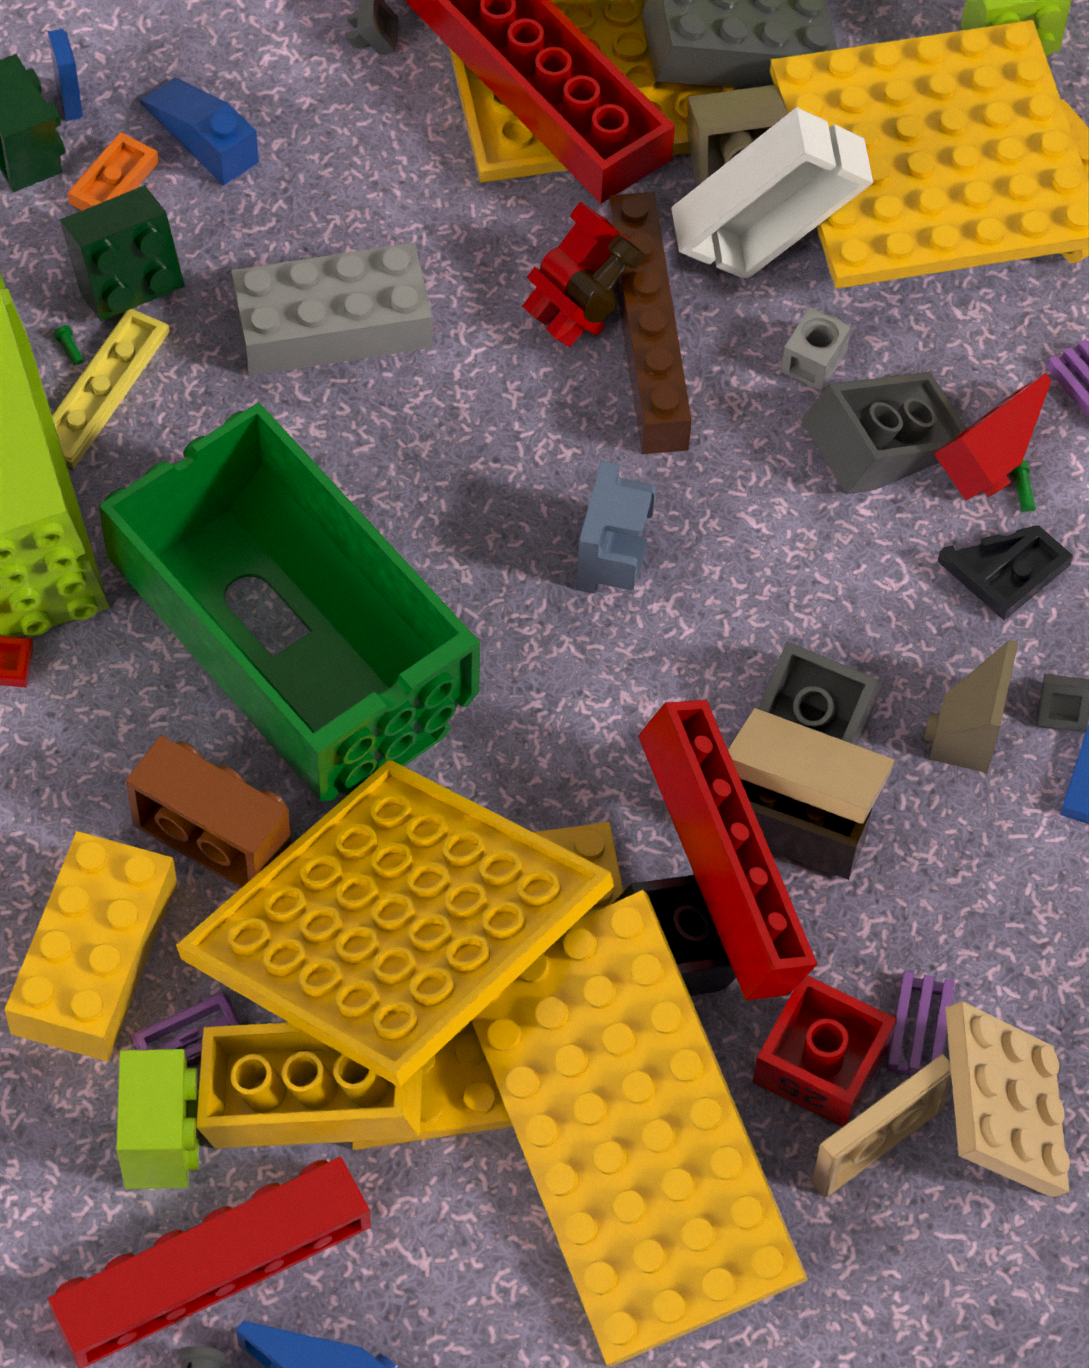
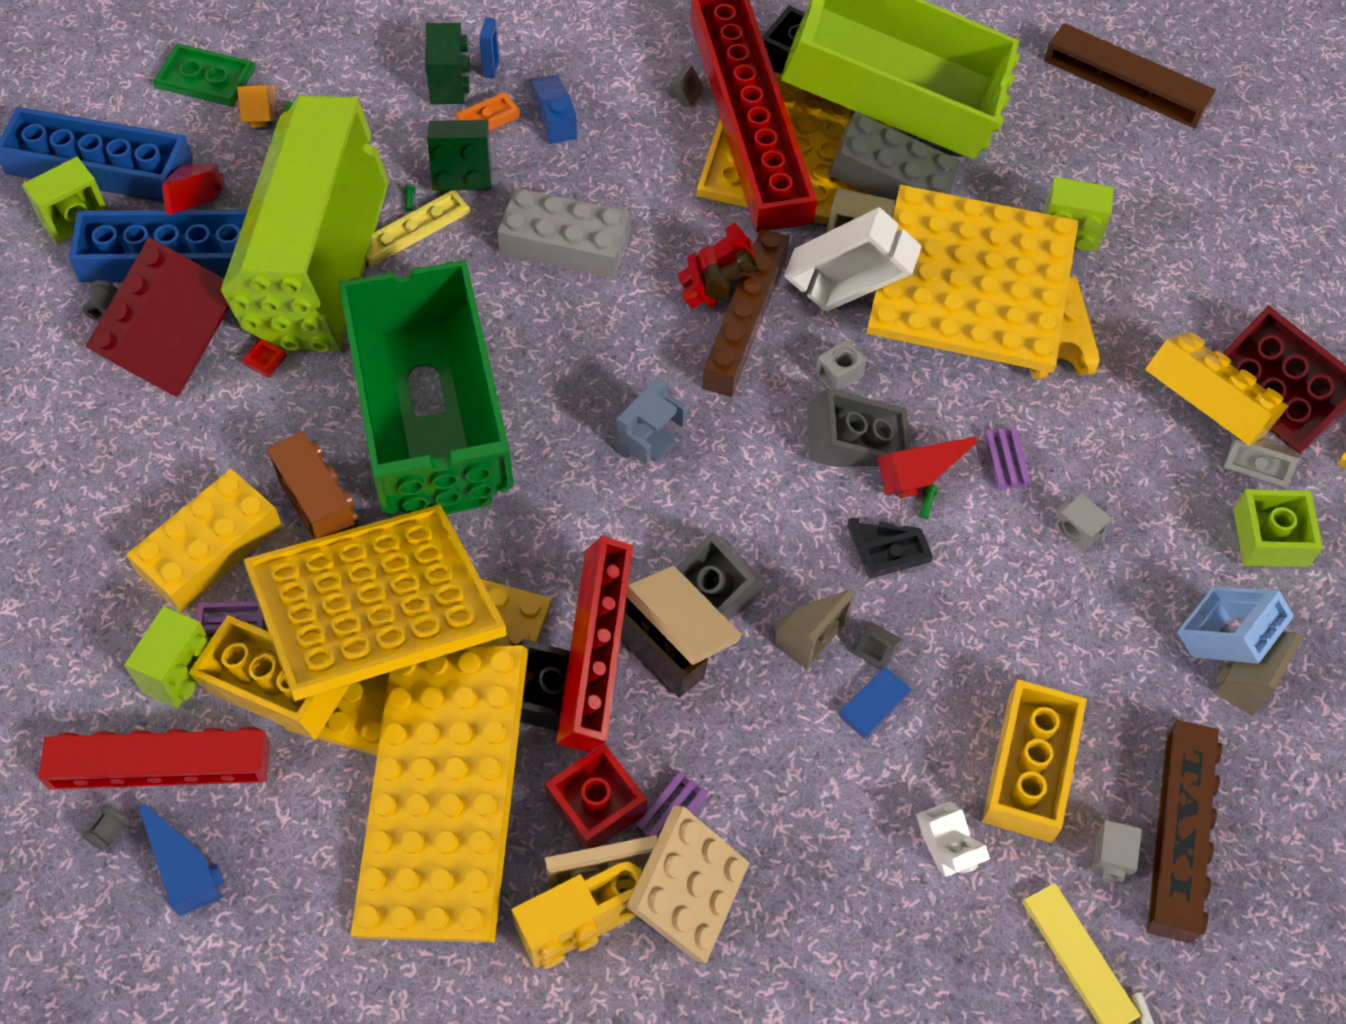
camera: 25 degrees right, 0 degrees up
(884, 1203) = (574, 914): none -> yellow brick

